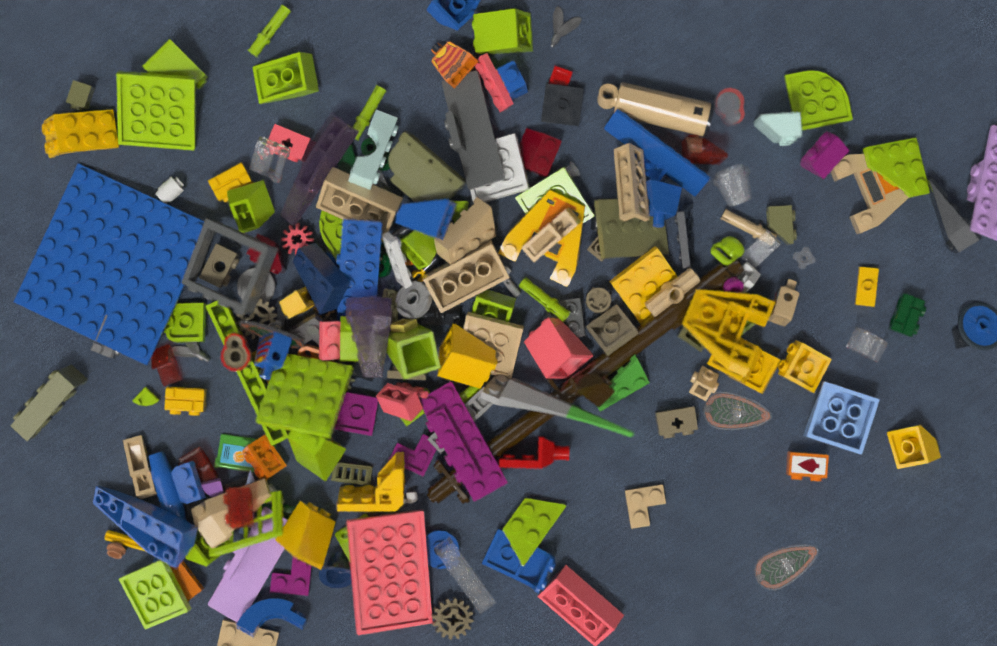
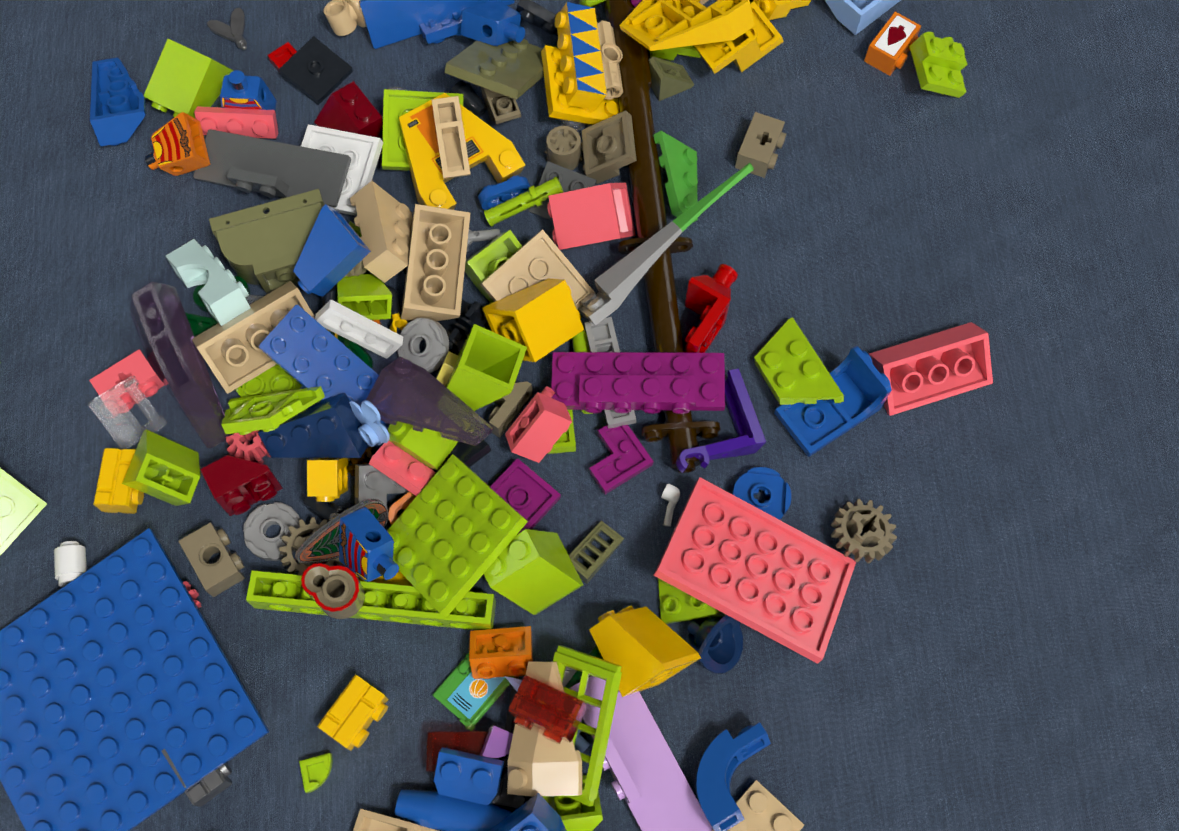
camera: 60 degrees left, 20 degrees down
(166, 365) = (291, 712): clear red slope -> none
(187, 323) = (255, 648): lime plate -> none
(191, 350) = (294, 664): flat silver piece -> none
(259, 275) = (149, 522): dark grey window -> none
(285, 78) = (48, 341): lime slope -> none
(295, 583) = (698, 713): magenta plate -> none
(314, 243) = (267, 410): none -> lime wing
(340, 309) = (371, 430): none -> light blue plate
(368, 110) = (160, 267): lime pin -> none
(387, 494) = (645, 507): yellow bracket -> none
(464, 575) = (814, 477): clear brick -> none
(477, 517) = (746, 424): none -> dark purple hinge
(539, 276) = (496, 194): none -> blue plate
(593, 387) = (666, 193): dark brown slope -> none
(629, 182) = (450, 33): tan fence -> none
(639, 500) = (834, 238): tan plate -> none
(661, 276) = (580, 56): none -> yellow brick
(704, 383) = (733, 91): tan brick -> none
(734, 412) = (785, 88): clear shield -> none
(784, 565) = (999, 131): clear shield -> none
(805, 504) = (939, 64): none -> lime plate

